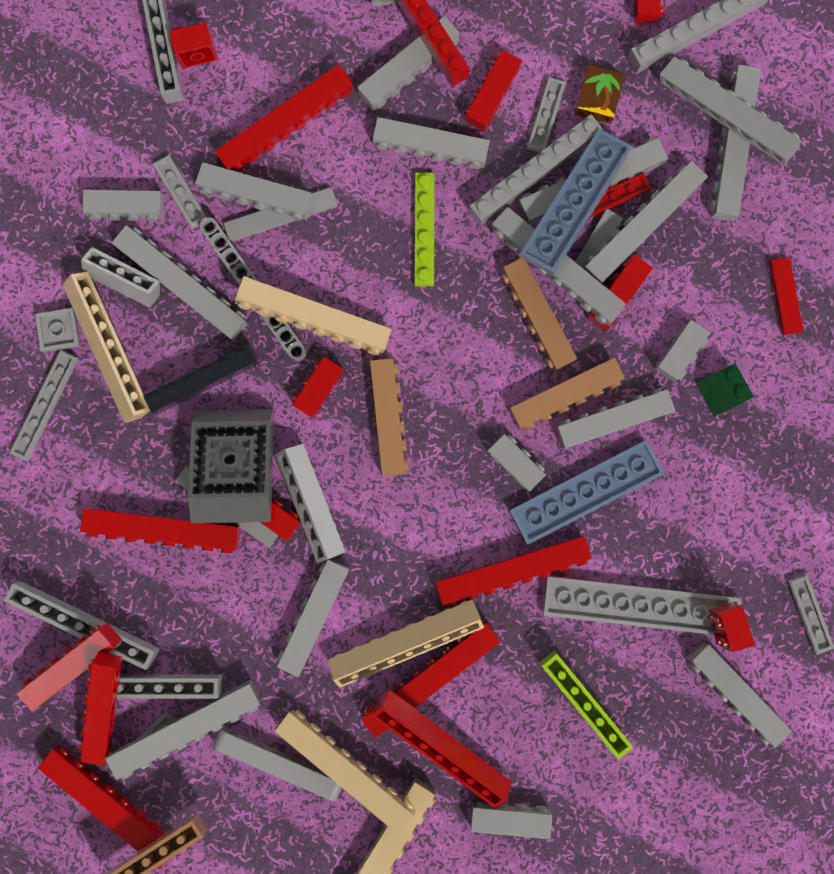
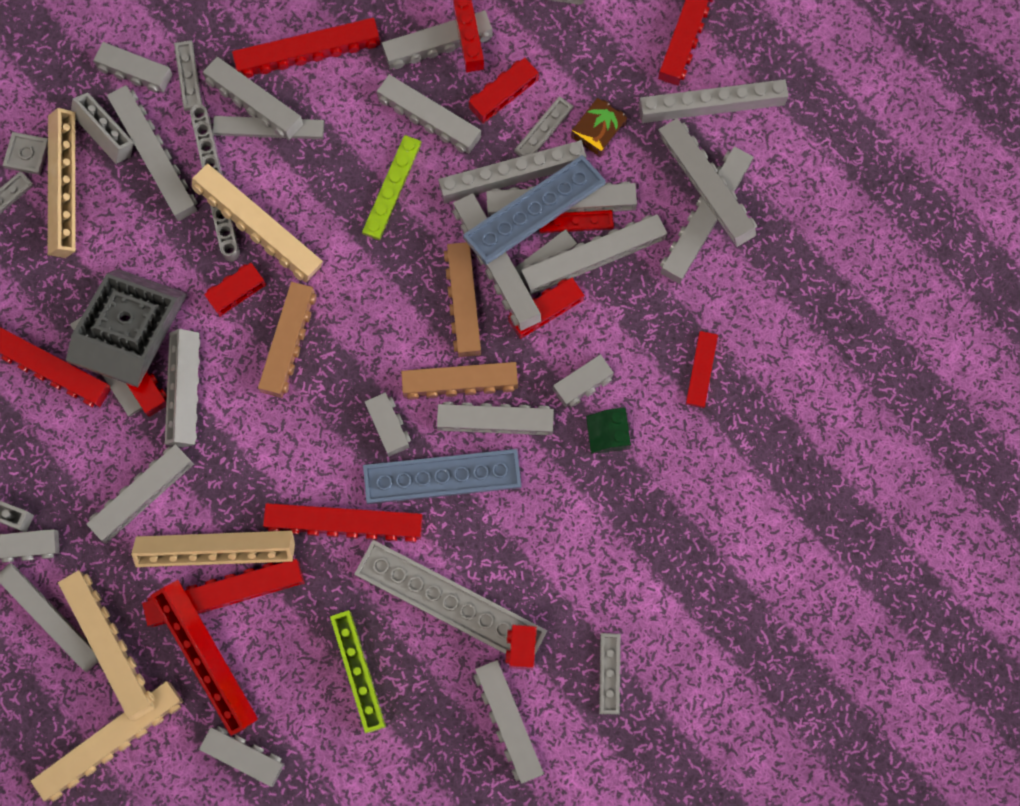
camera: 20 degrees right, 10 degrees down
(201, 380) = (133, 243): black brick -> none

